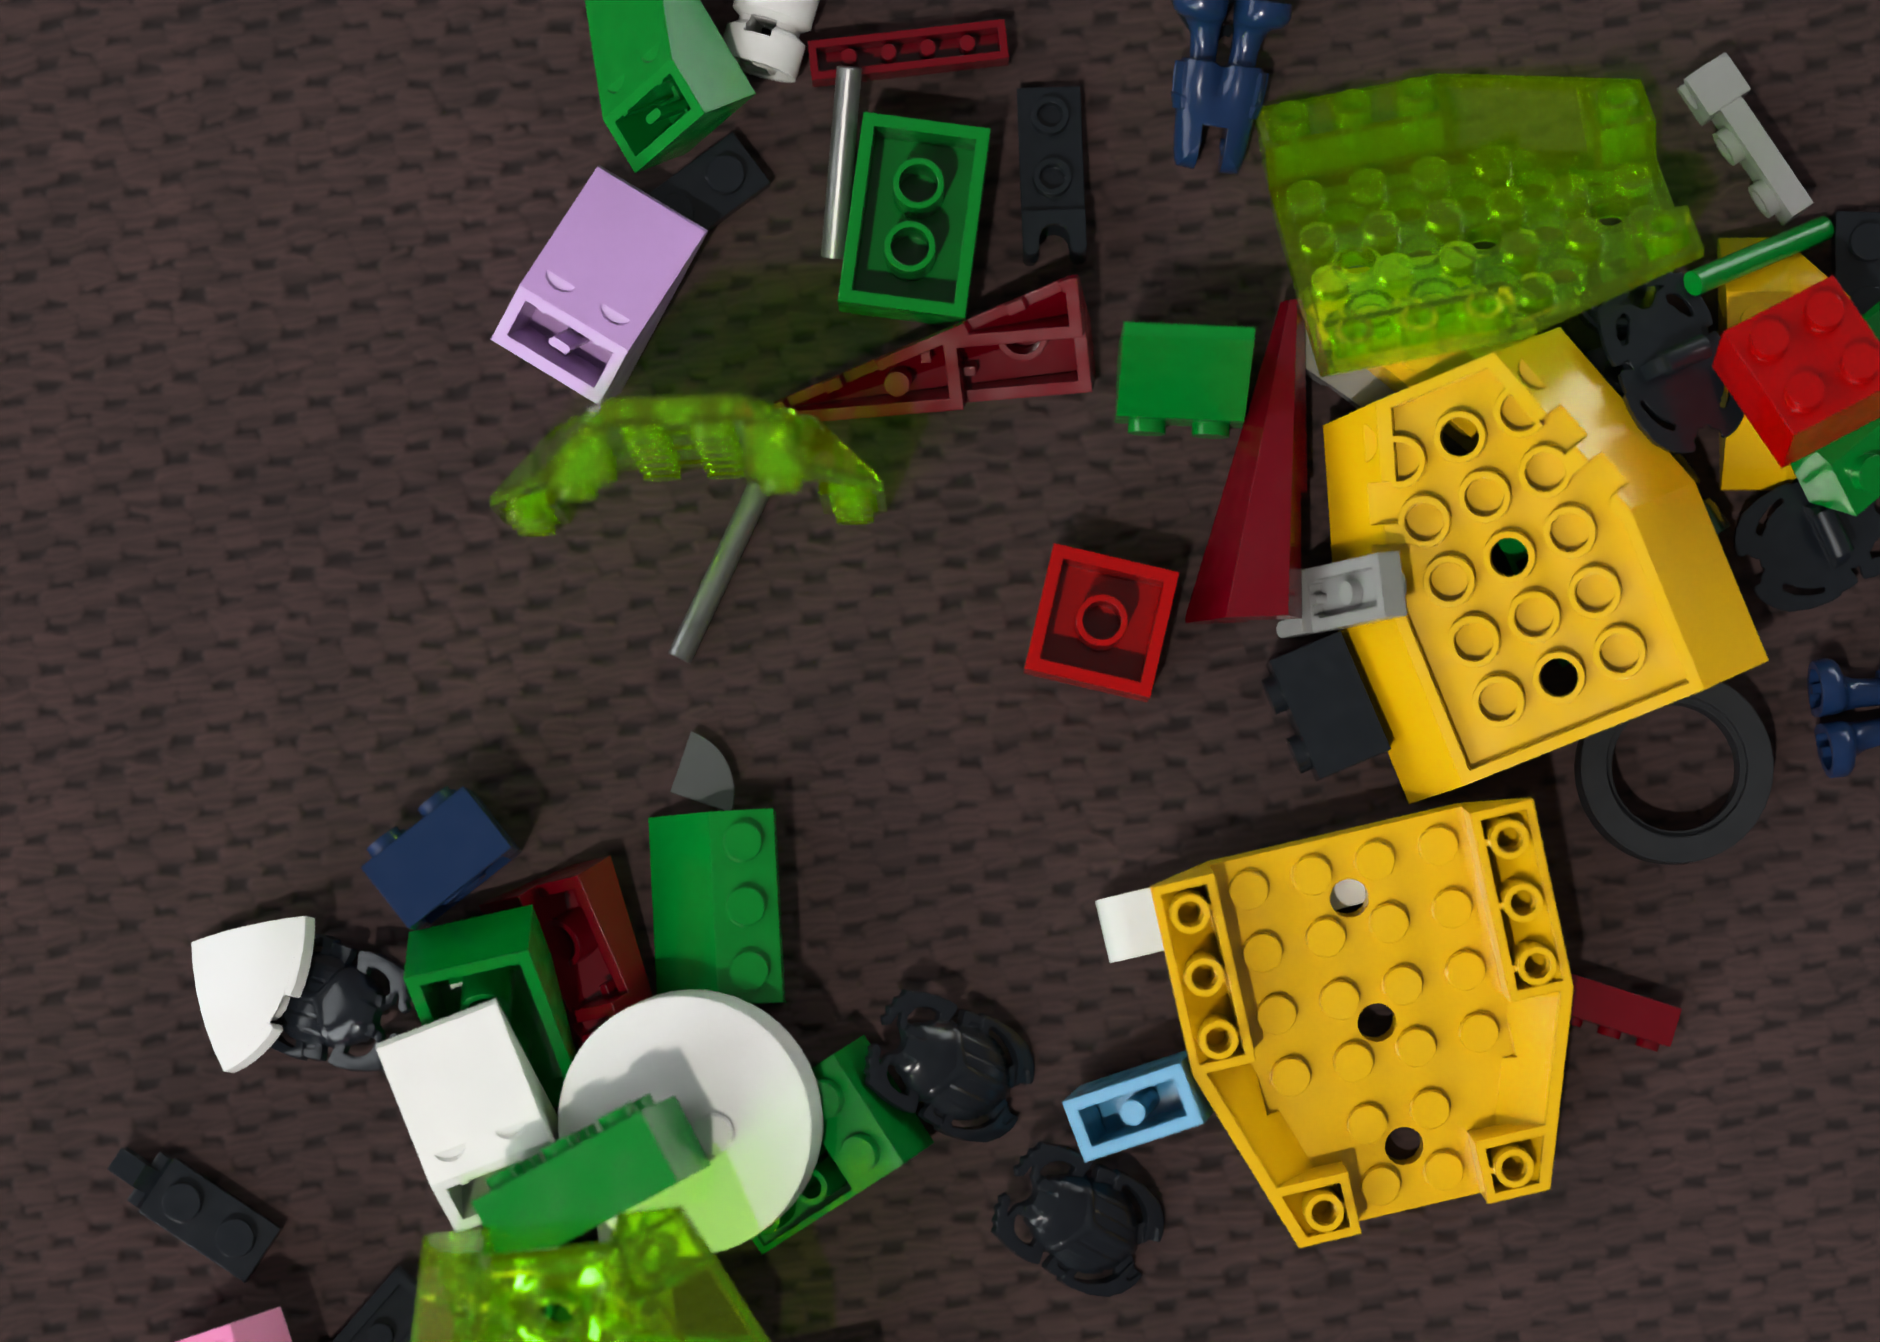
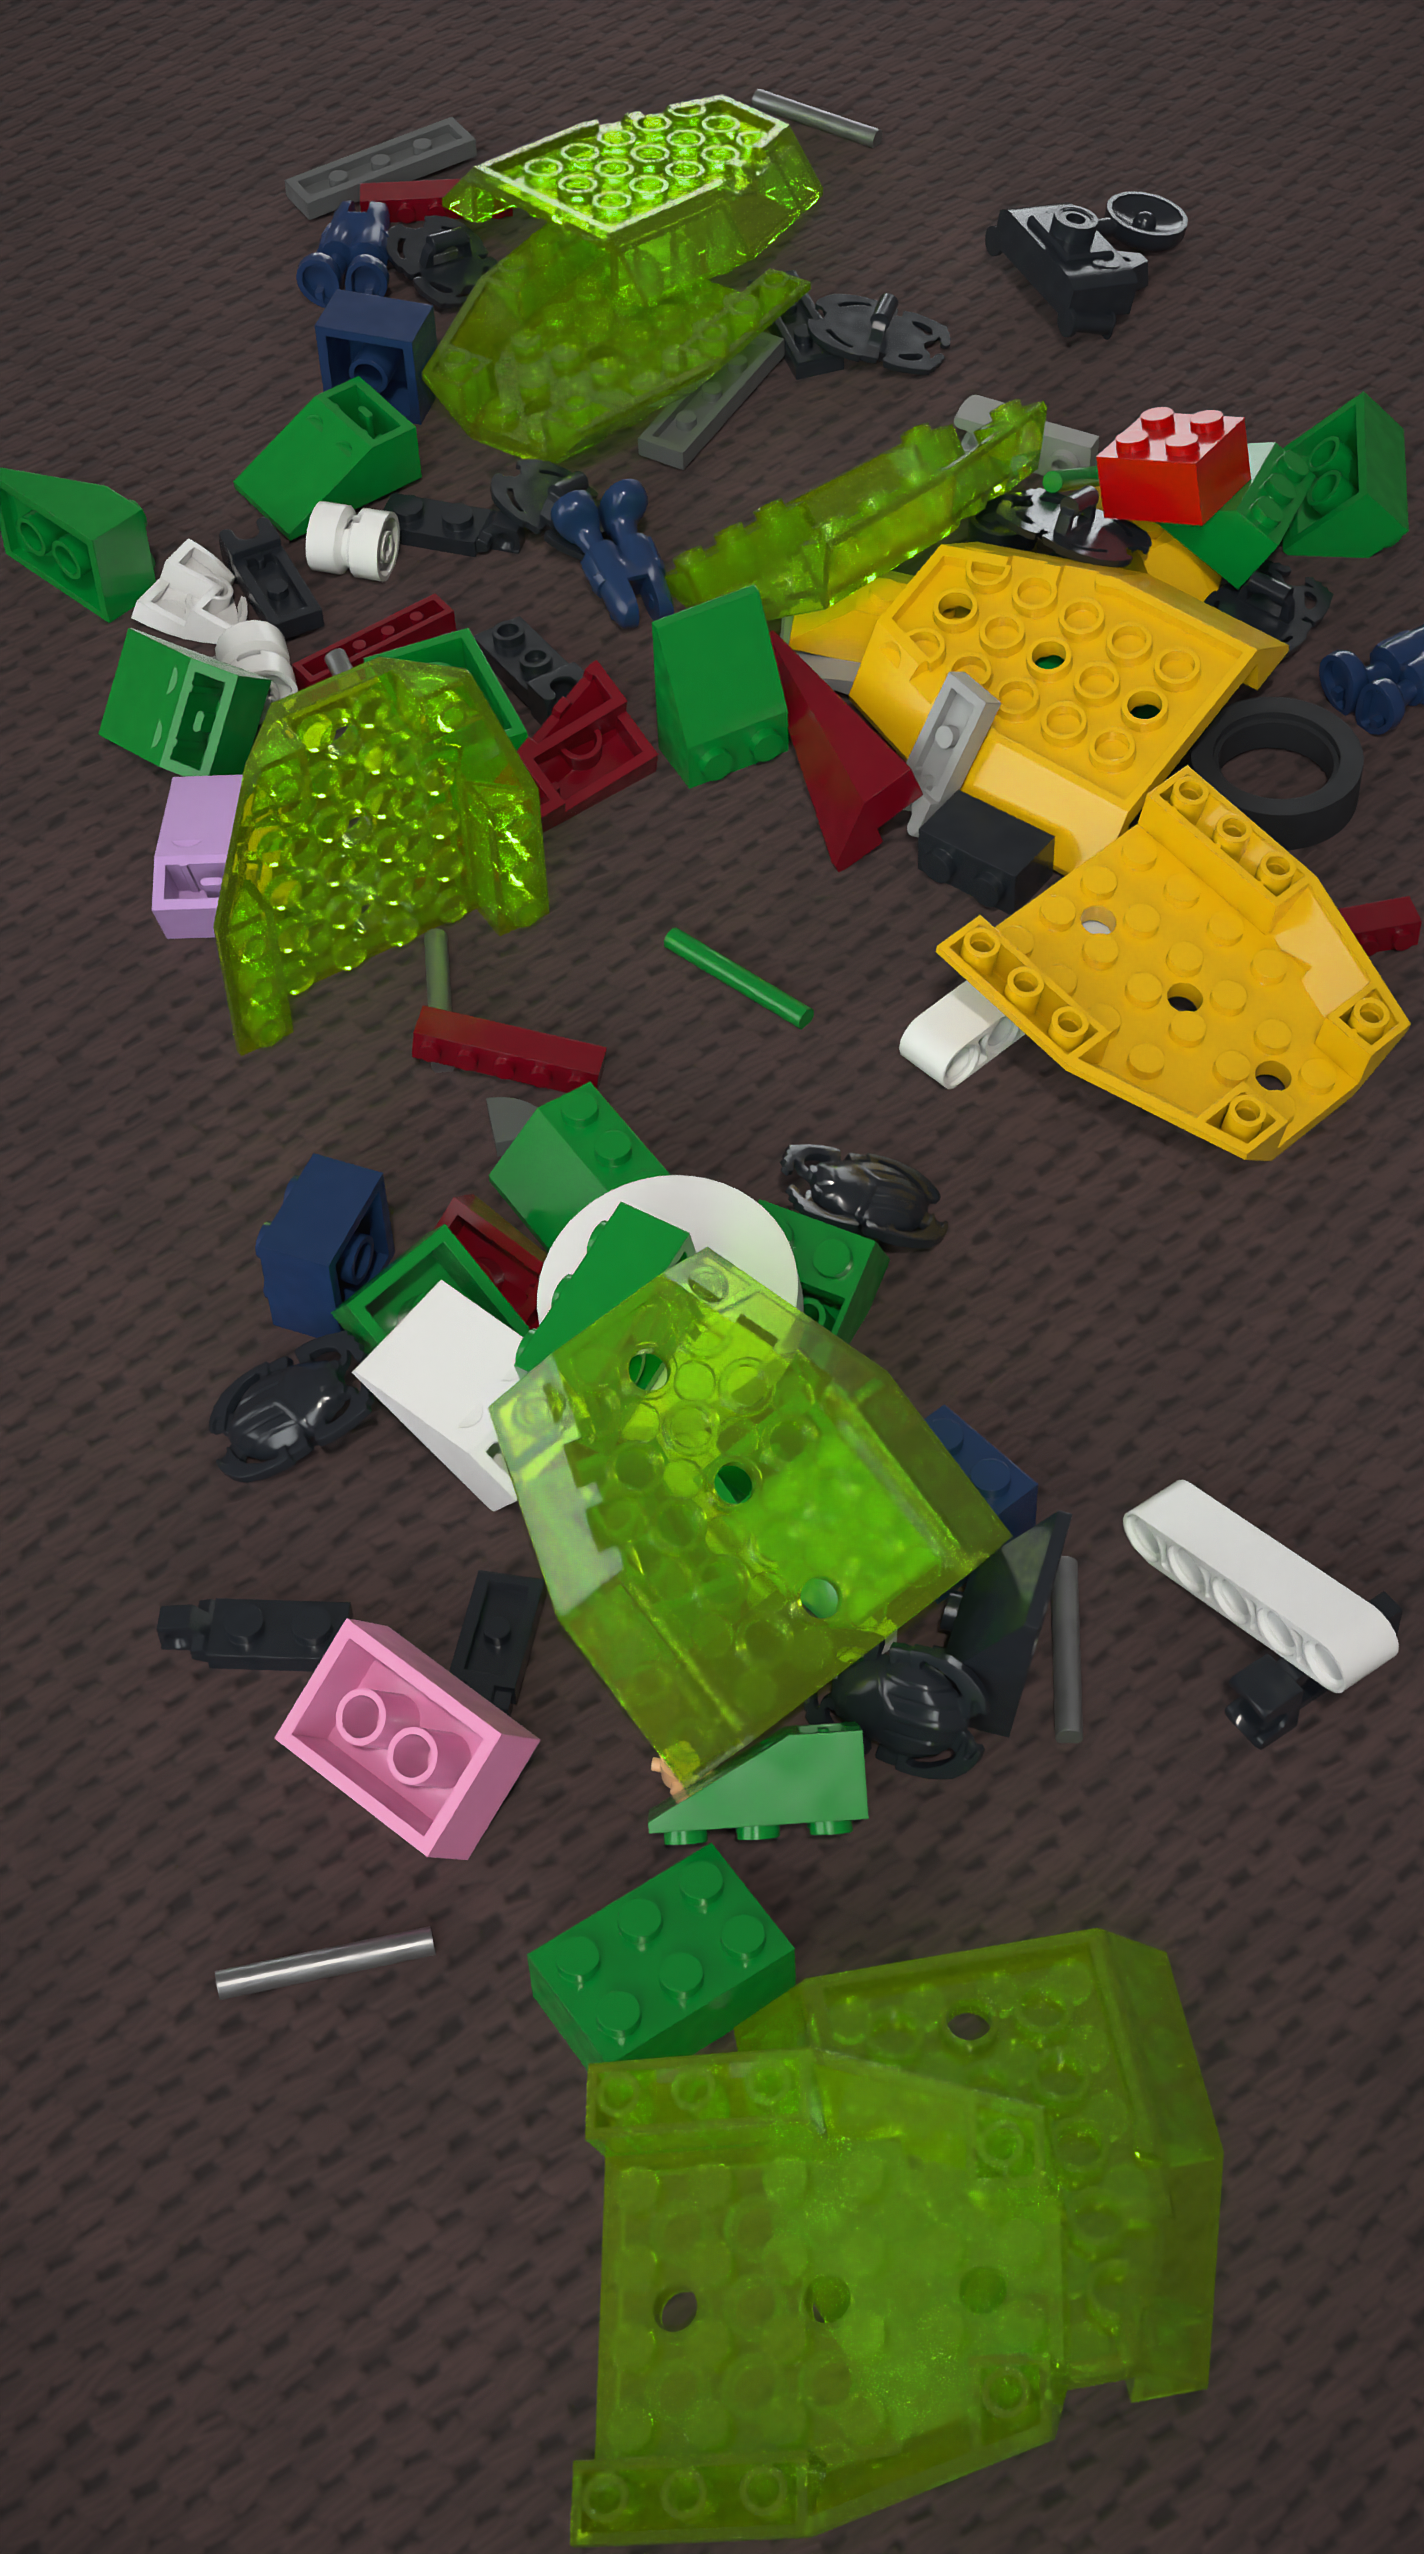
camera: 30 degrees left, 35 degrees down
(248, 981) = (207, 1427): white brick -> none
(737, 695) = (506, 1051): none -> dark red piece
(1009, 711) = (738, 978): none -> green bar
(1079, 1221) = (1056, 1243): black shield -> none
(1101, 622) = (770, 873): red brick -> none
(1136, 1106) = (1041, 1131): dark azure brick -> none

